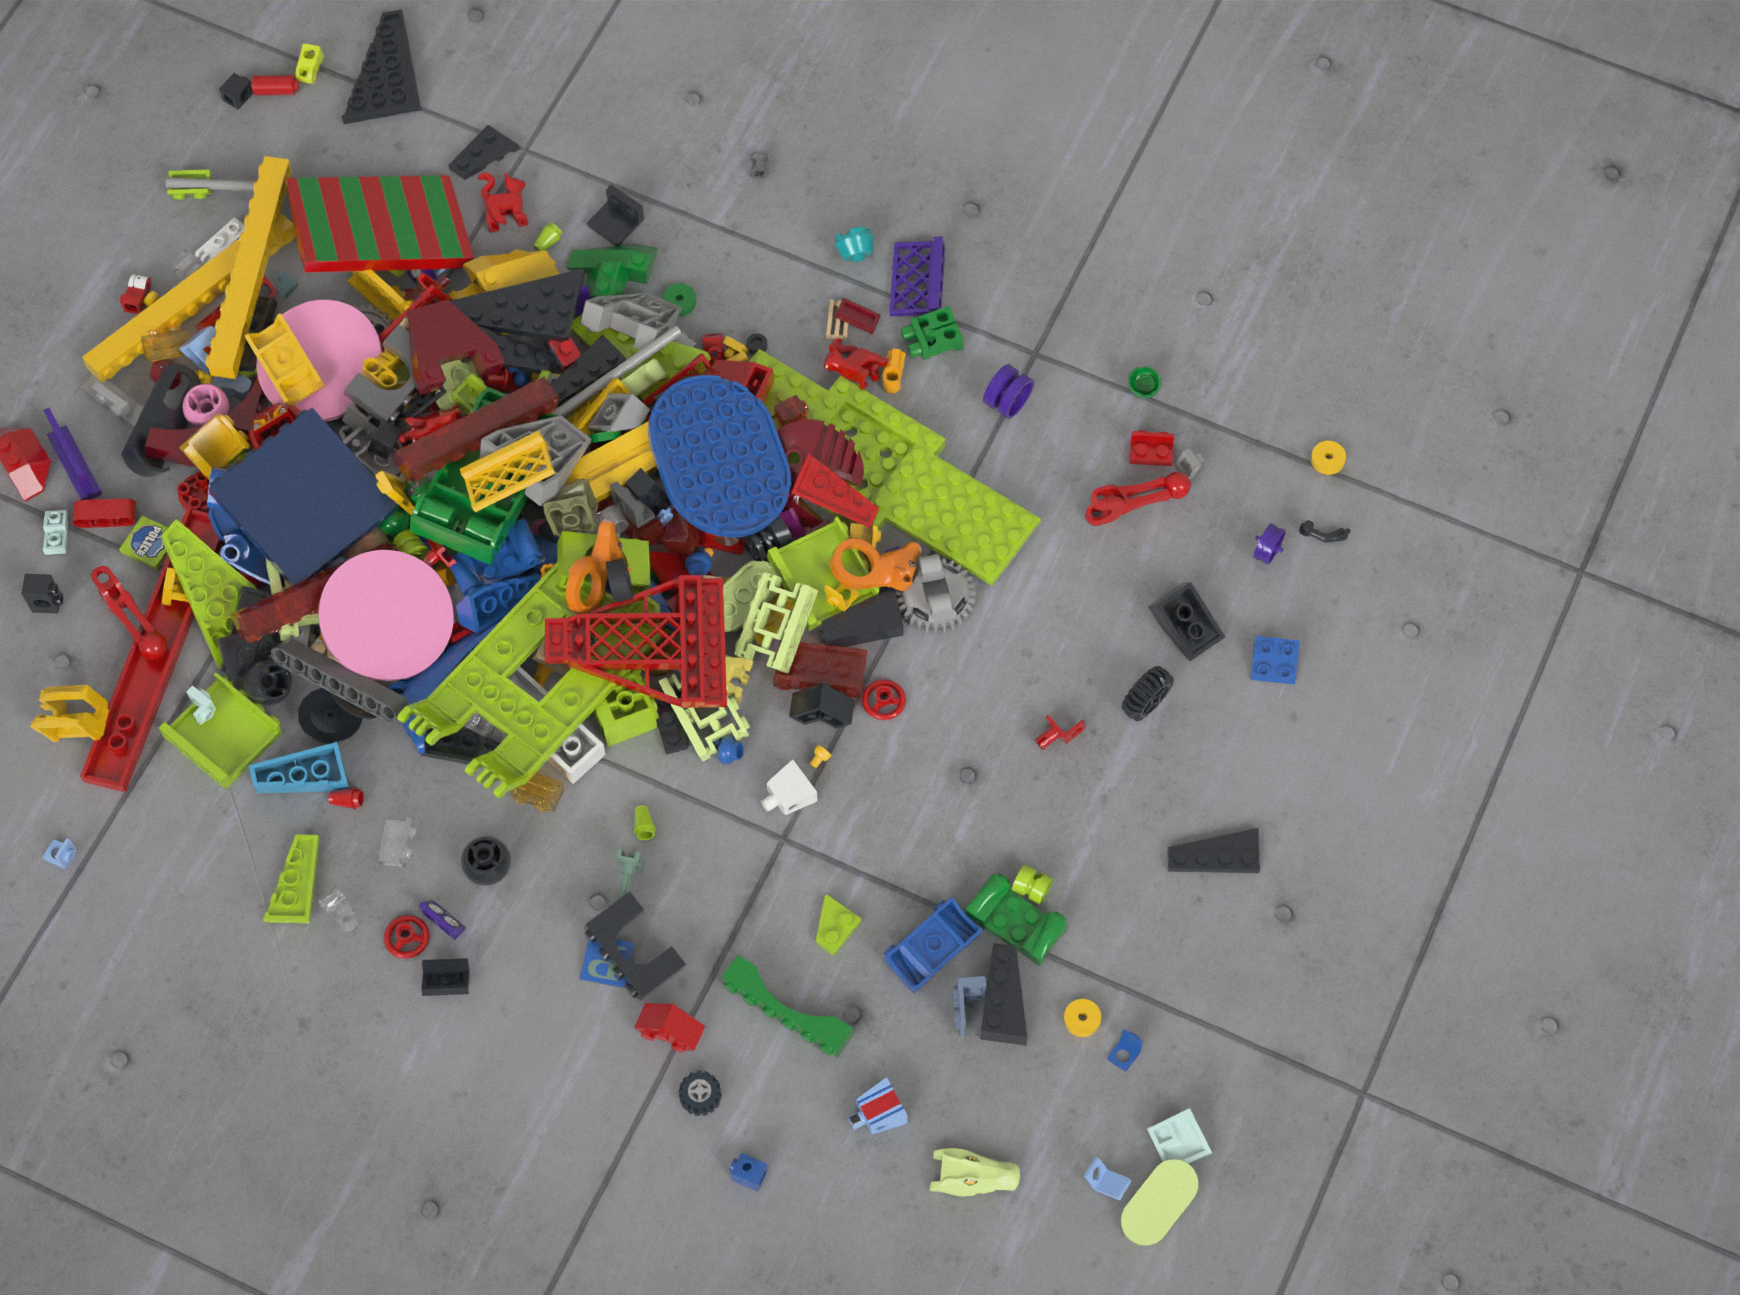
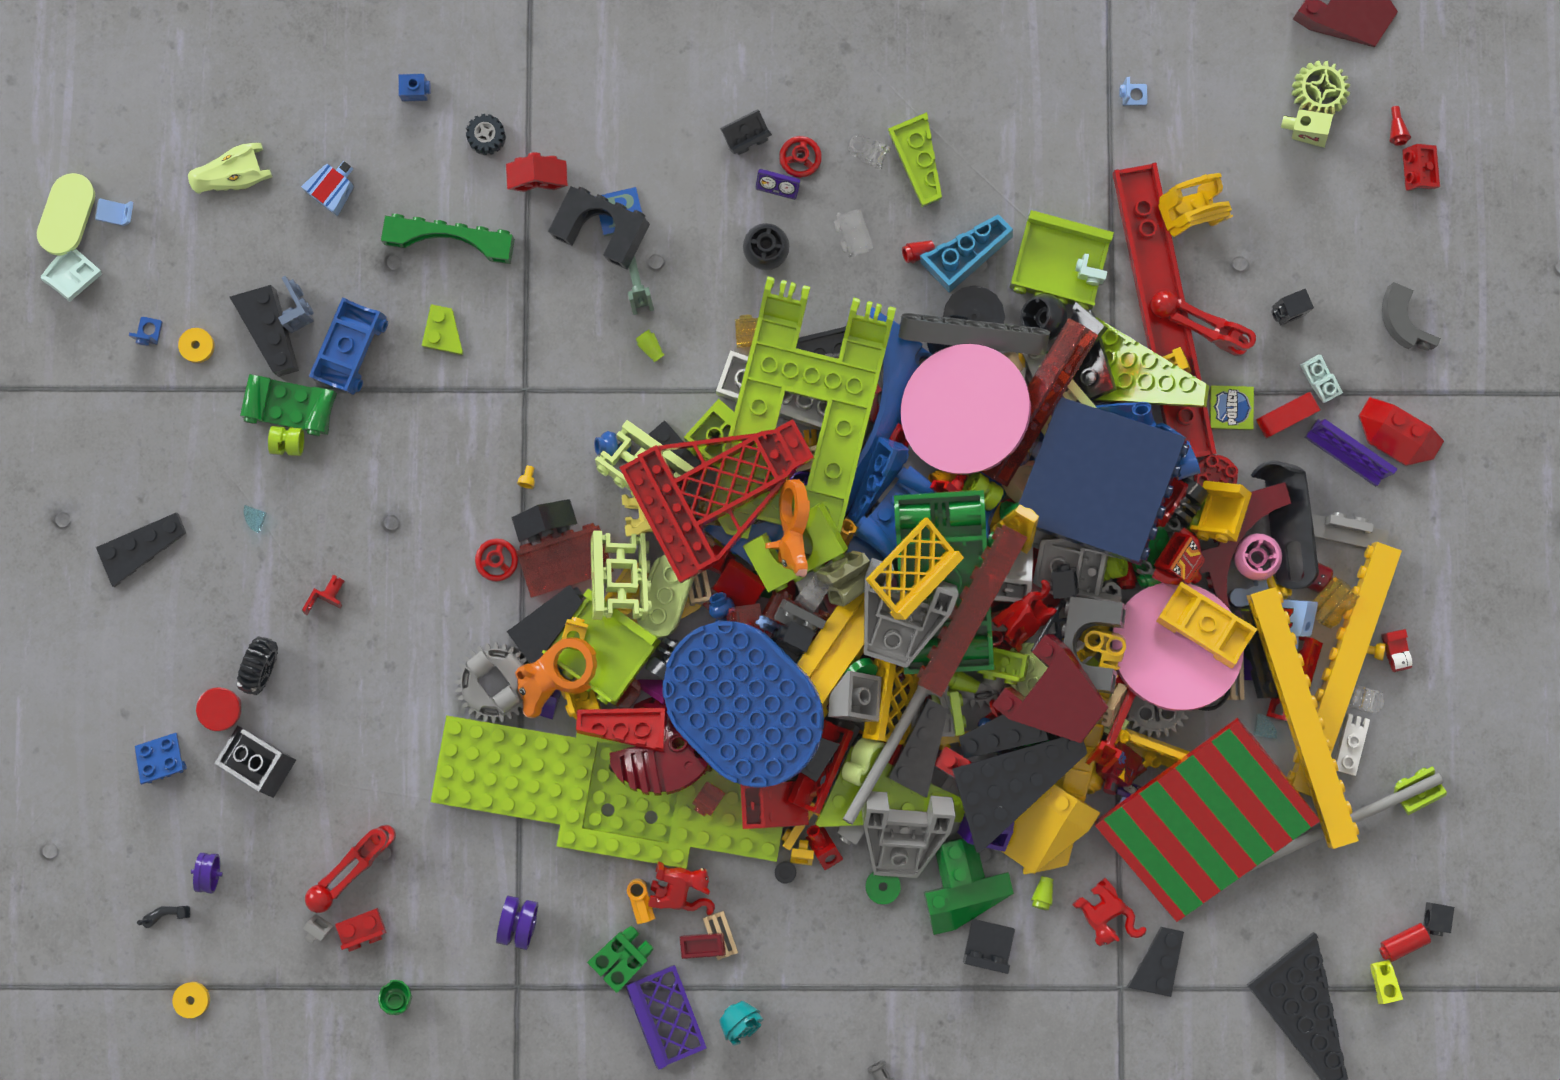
camera: 150 degrees right, 20 degrees up
(619, 580) = (764, 524): black tyre -> none
(789, 790) = (538, 431): white torso -> none
(1095, 833) = (254, 518): none -> clear light blue tile
(1201, 679) = (218, 709): none -> red tile

